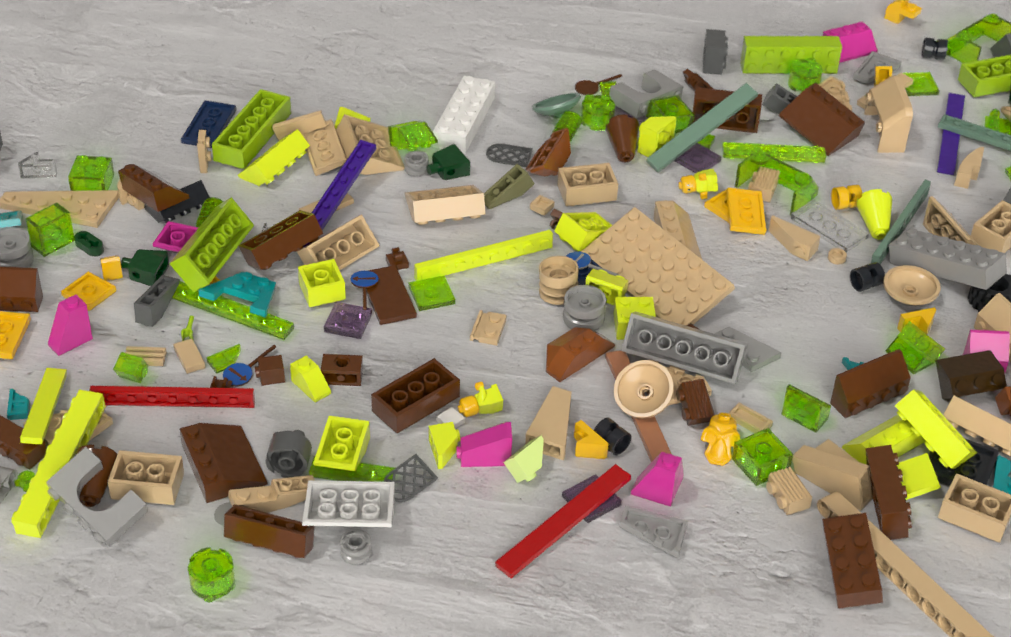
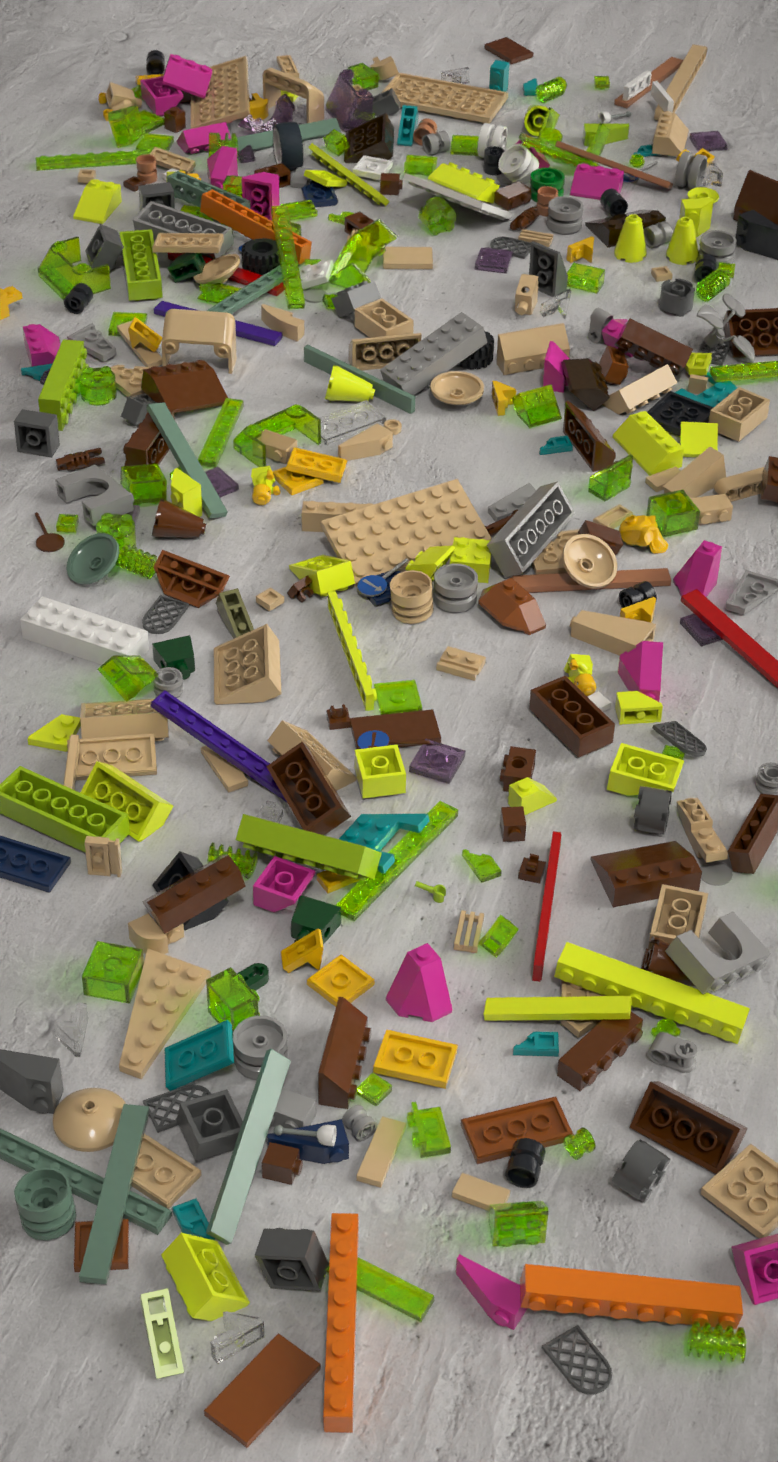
camera: 80 degrees left, 0 degrees up
(154, 302) = (387, 910): dark grey slope -> none
(189, 356) = (473, 893): tan tile -> none
(242, 373) = (505, 855): blue piece -> none
(349, 503) = (735, 770): white slope -> none
(526, 460) = (674, 655): yellowish green slope -> none
(587, 184) = (250, 558): tan brick -> none
(845, 196) = (313, 398): yellow wheel -> none
(867, 276) = (435, 411): black wheel -> none
(888, 492) = (740, 449): reddish brown brick -> none
(935, 429) = (663, 405): neon yellow slope -> none

